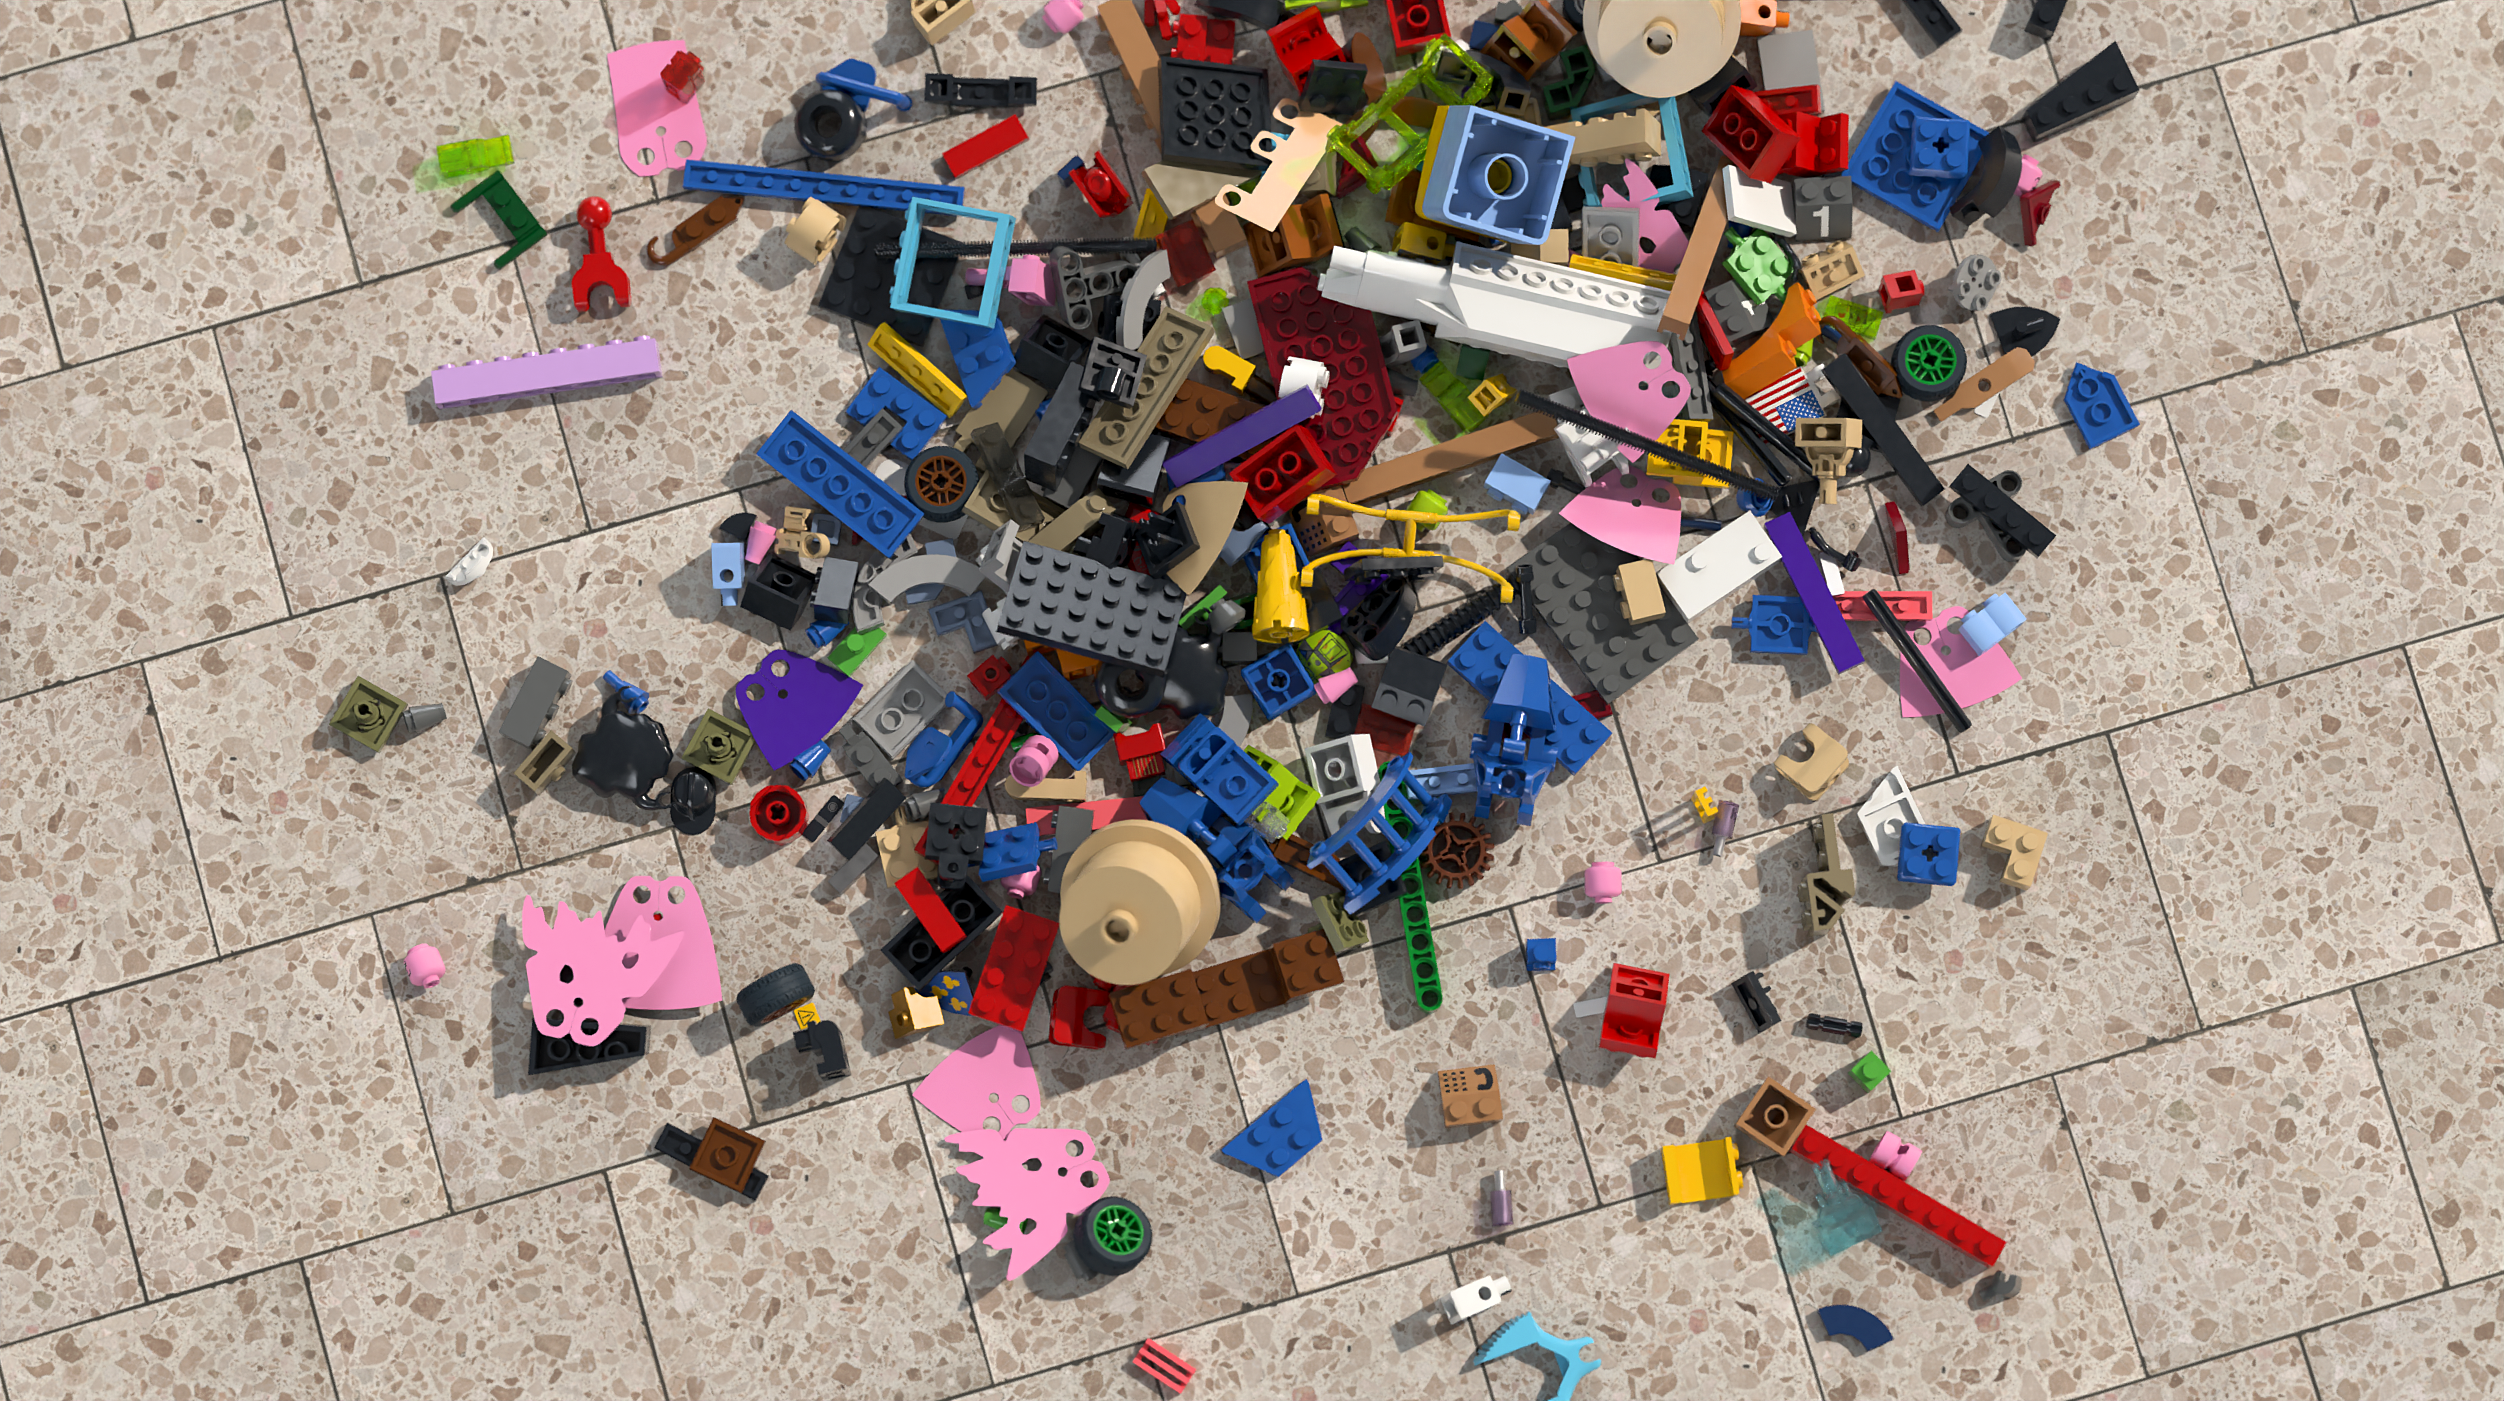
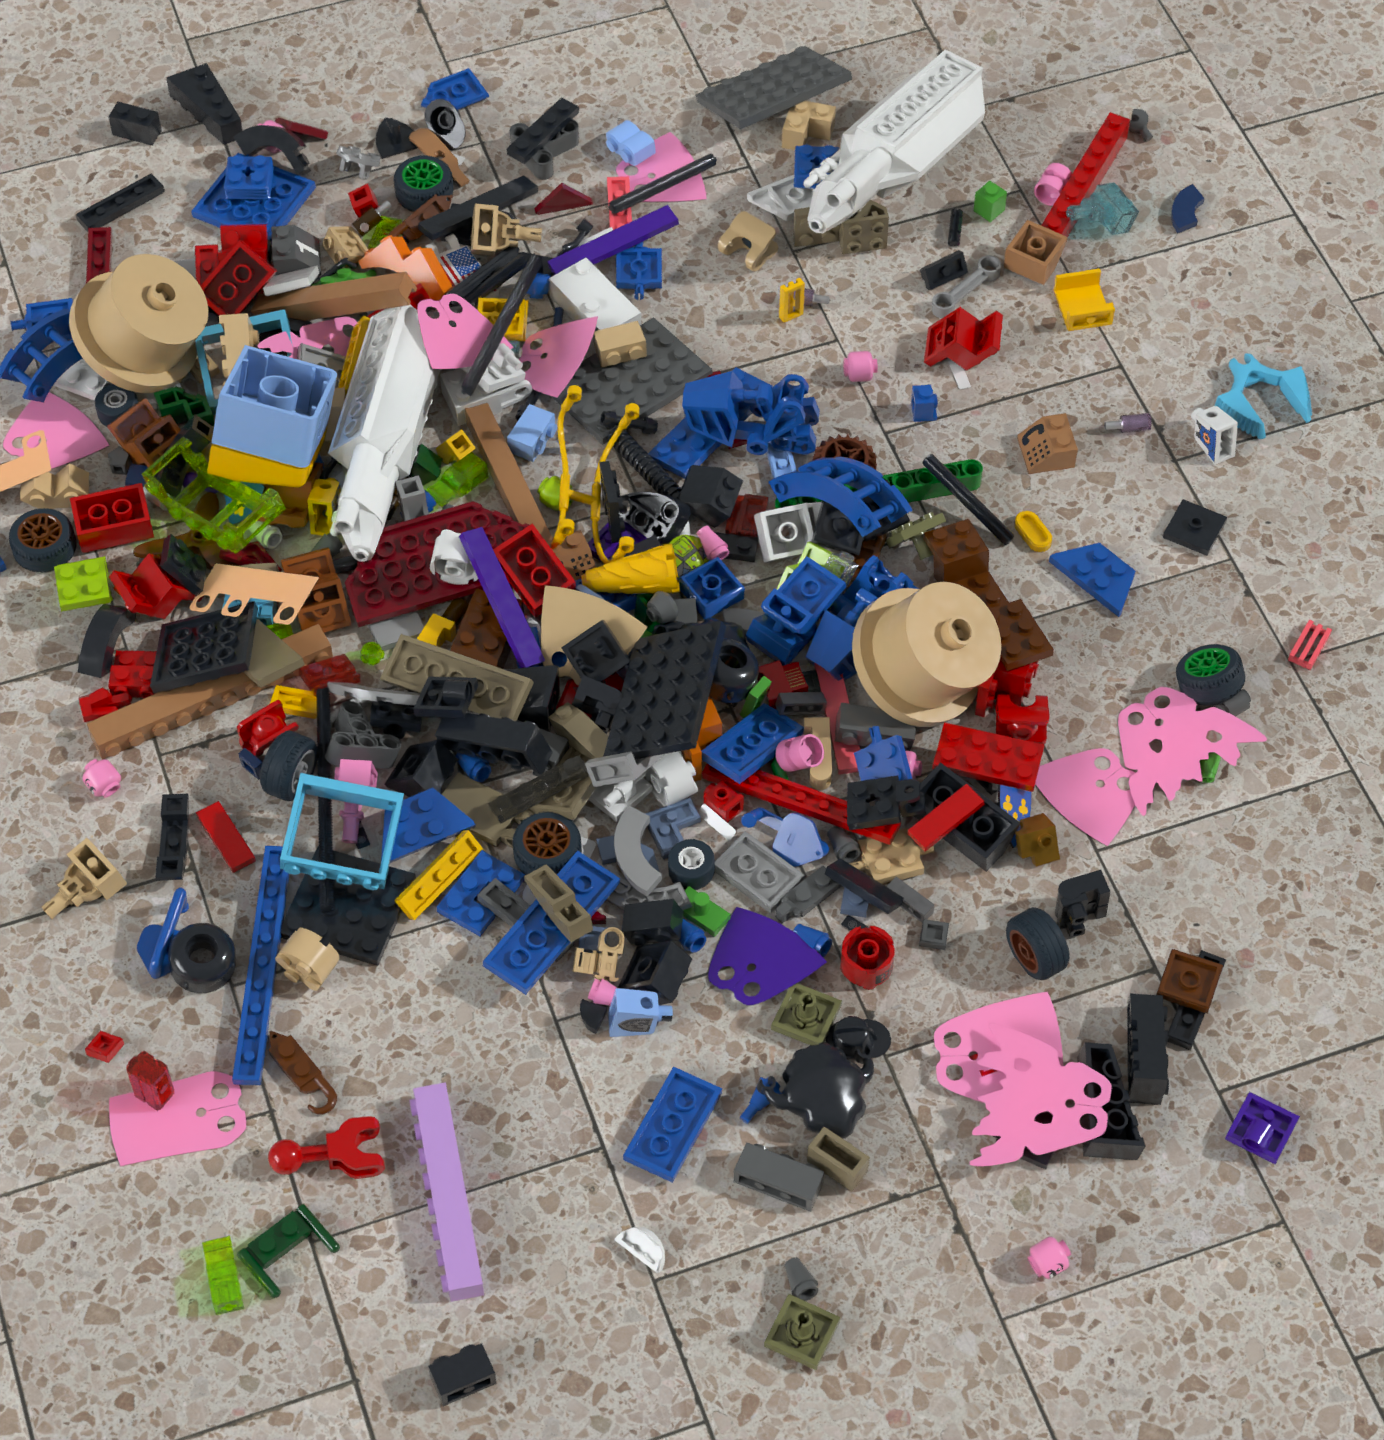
camera: 95 degrees left, 25 degrees down
(348, 383) = (462, 1373): none -> black brick
(552, 1206) = (1262, 1128): none -> dark purple plate
(604, 601) = (672, 1124): none -> blue plate
(649, 1097) = (1147, 1049): none -> black wedge
(737, 31) = (104, 1046): none -> red tile
(811, 892) = (934, 934): none -> dark grey tile
(852, 489) = (559, 903): none -> dark tan slope
(902, 636) = (691, 864): none -> black wheel
(962, 675) = (716, 822): none -> white sticker
(1054, 208) = (285, 761): none -> black wheel
(1111, 771) = (800, 703): none -> flat silver piece
(1330, 818) = (836, 531): none -> black plate
(1342, 1258) = (1195, 527): none -> black plate
(1348, 1065) = (1033, 531): none -> yellow tile
(1384, 988) = (968, 499): none -> black axle
(1733, 1028) = (966, 286): none -> light grey piece
(1871, 297) = (370, 218): none -> dark brown piece
(1937, 951) = (898, 139): none -> white piece
(2032, 392) = (445, 123): none -> black piece
(2076, 811) = (773, 87): none -> dark grey plate

